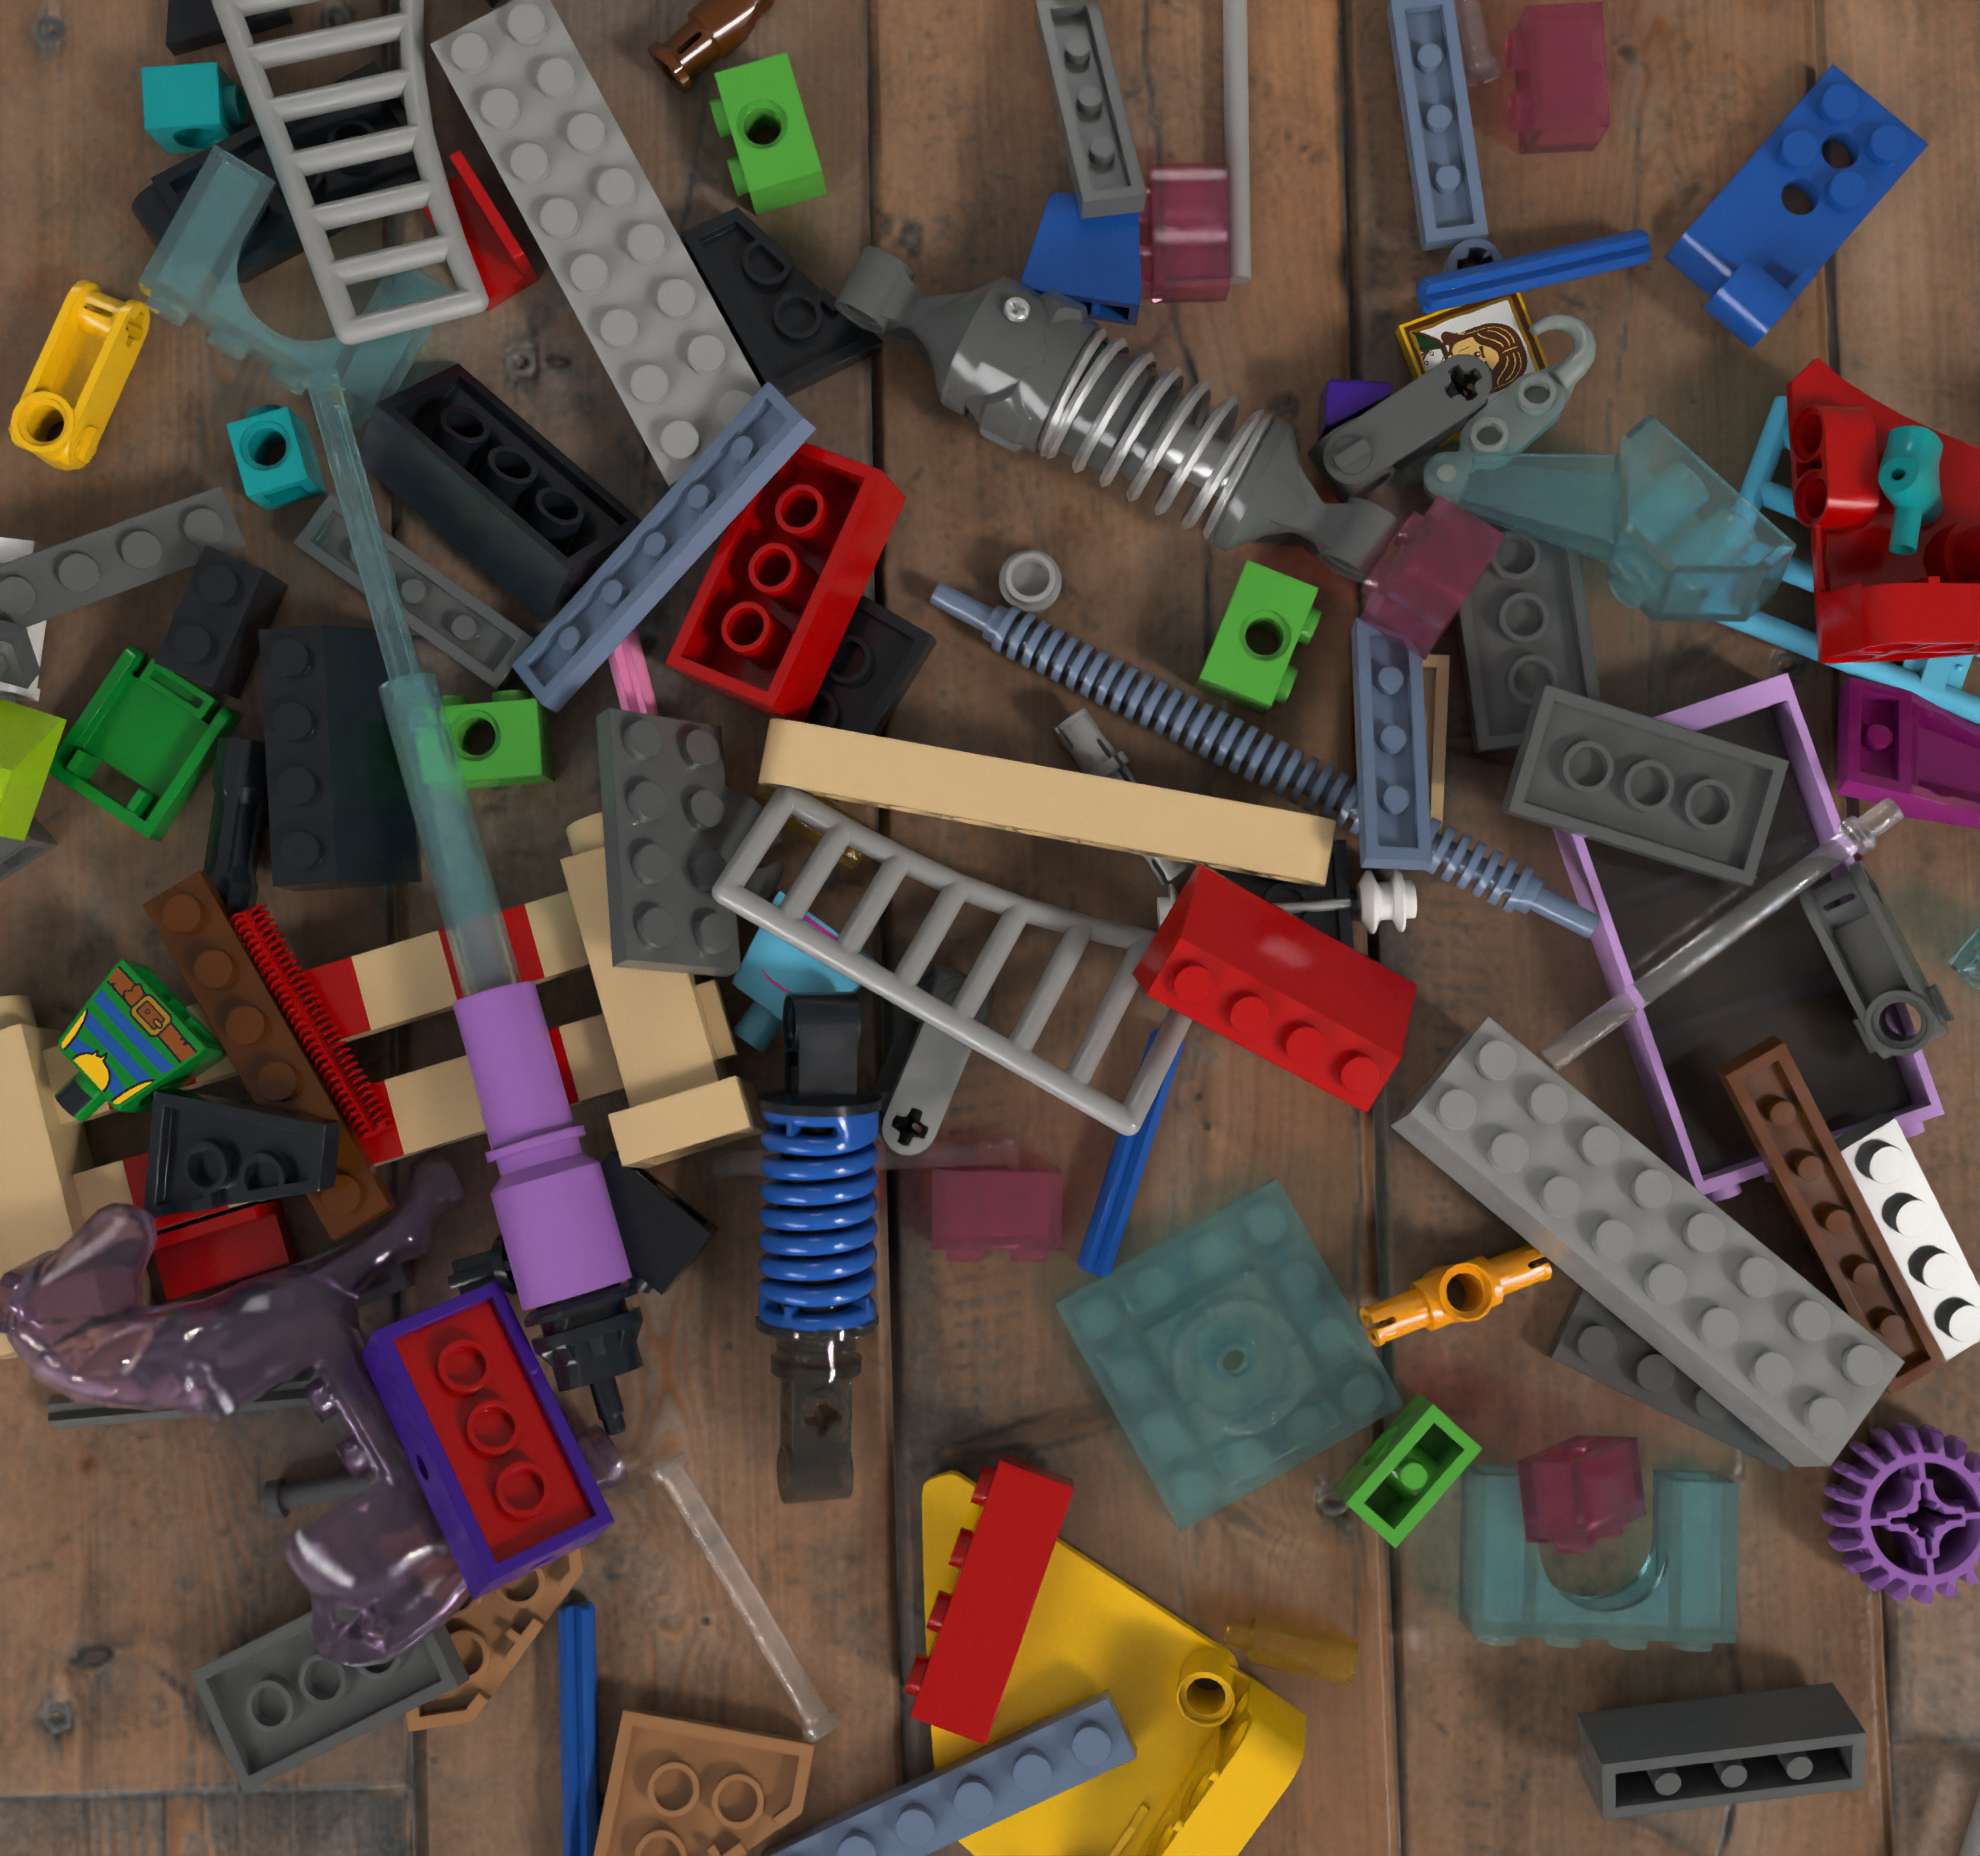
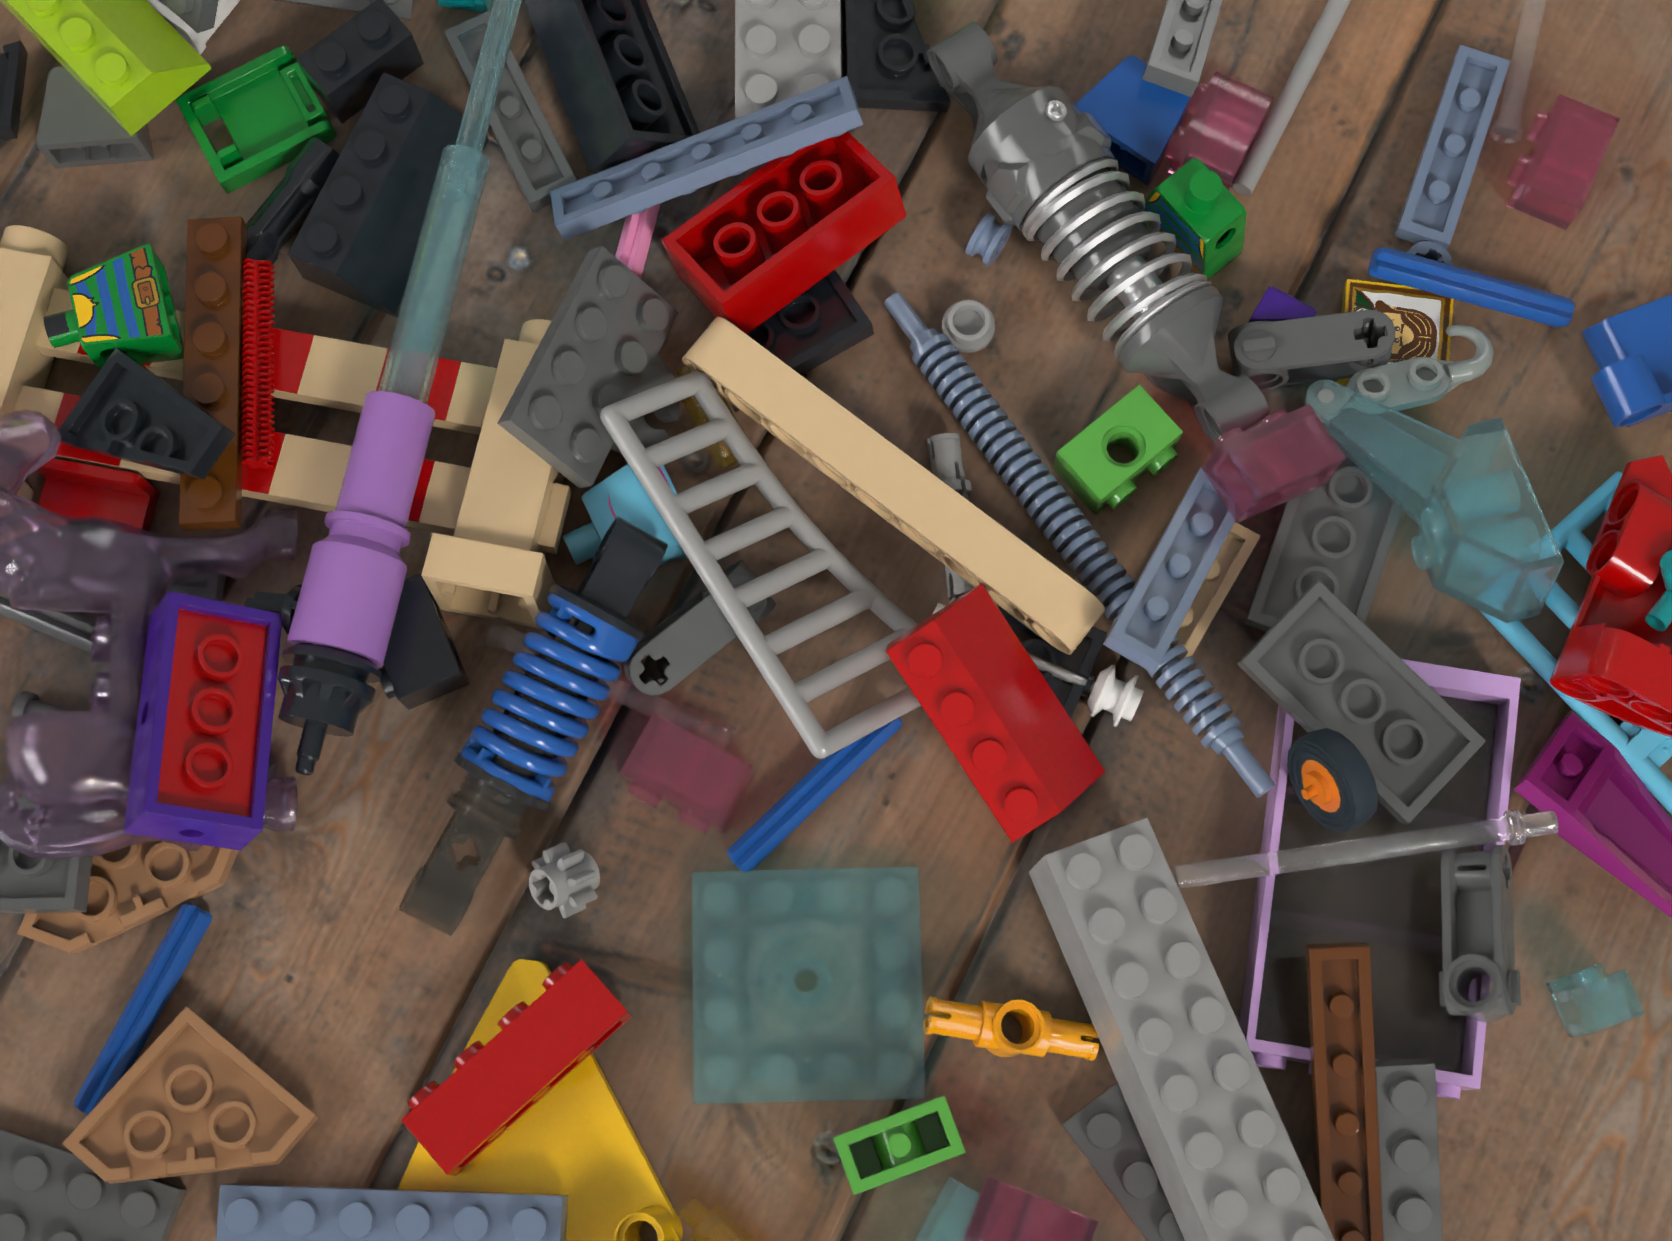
camera: 25 degrees right, 10 degrees down
(521, 745) = (524, 254): bright green brick -> none
(746, 1598) = (329, 973): clear bar -> none
(932, 1383) = (564, 880): none -> light grey gear
(1003, 475) = (988, 239): none -> sand blue bush
(1212, 340) = (1200, 214): none -> green torso
(1660, 886) = (1332, 780): none -> black wheel

